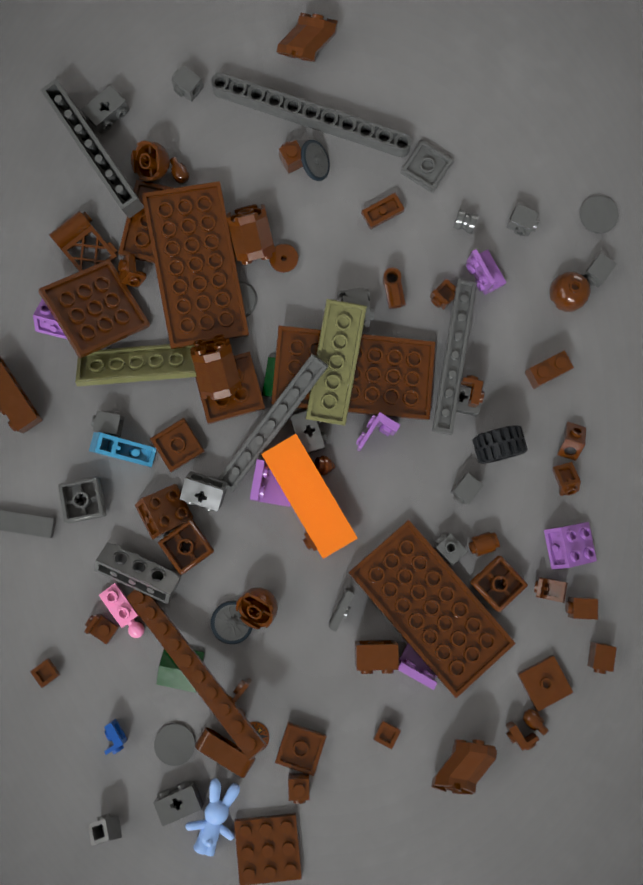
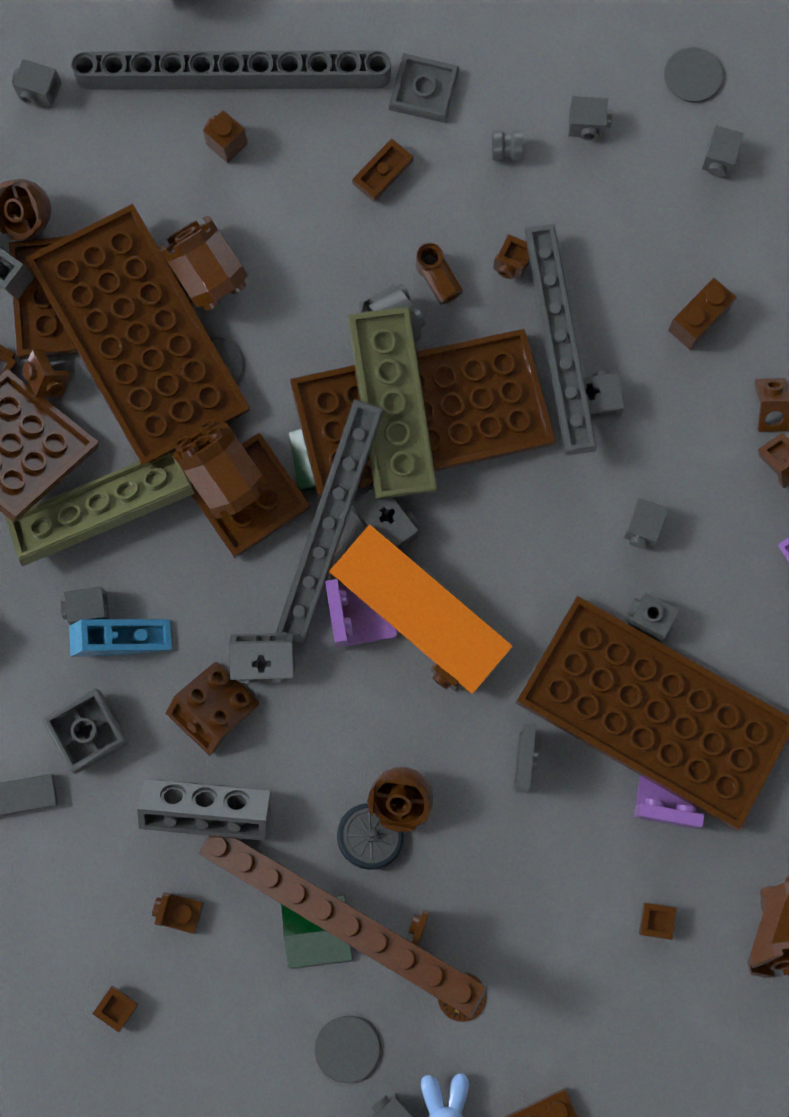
camera: 15 degrees left, 5 degrees down
(116, 735) = (251, 1062): blue bracket -> none
(122, 610) = (200, 874): bright pink plate -> none
(173, 544) = (243, 748): reddish brown brick -> none
(177, 445) = (199, 603): reddish brown plate -> none
(179, 171) = (67, 211): reddish brown cylinder -> none
(224, 752) = (427, 1032): reddish brown beam -> none
(284, 258) = (264, 284): reddish brown piece -> none
(298, 787) = (555, 1045): reddish brown brick -> none
(300, 749) = (537, 987): reddish brown plate -> none
(315, 160) = (260, 130): dark grey wheel -> none
(324, 465) = (426, 558): reddish brown plate -> none
(376, 655) = (601, 806): reddish brown brick -> none
(386, 427) = (493, 467): medium lavender bracket -> none
(476, 393) = (610, 380): reddish brown bracket -> none
(484, 543) = (698, 593): reddish brown brick -> none
(485, 271) = (560, 206): medium lavender bracket -> none
(499, 444) = (670, 440): black tyre -> none
(511, 585) = (759, 635): reddish brown brick -> none
(570, 291) = (691, 194): reddish brown cylinder -> none

